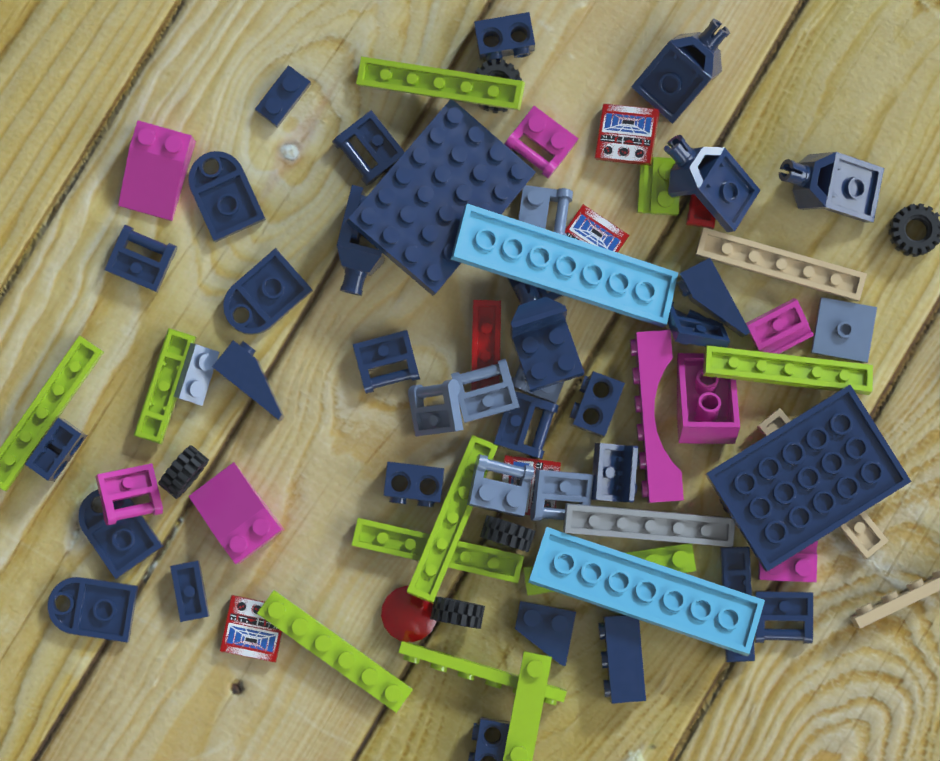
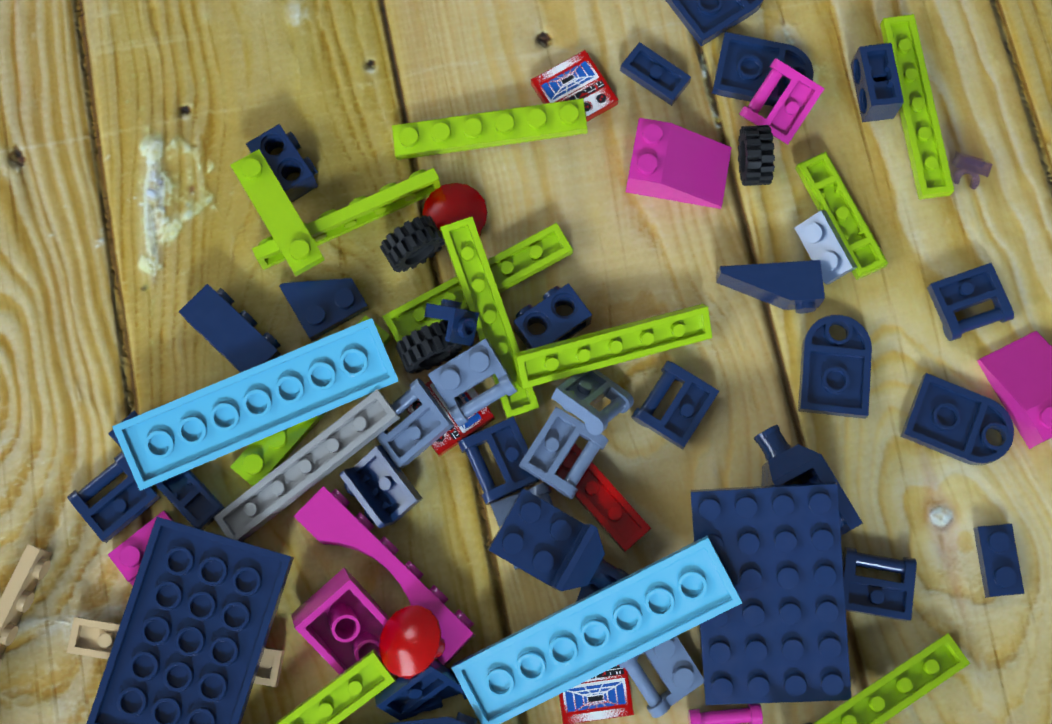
camera: 135 degrees right, 10 degrees down
(50, 342) = (970, 165): none -> clear purple tile
(392, 430) = (612, 346): none -> lime plate
(474, 532) = (461, 322): none -> dark blue bracket
(603, 406) = (444, 539): dark blue brick -> none
(678, 358) = (410, 641): none -> red dish

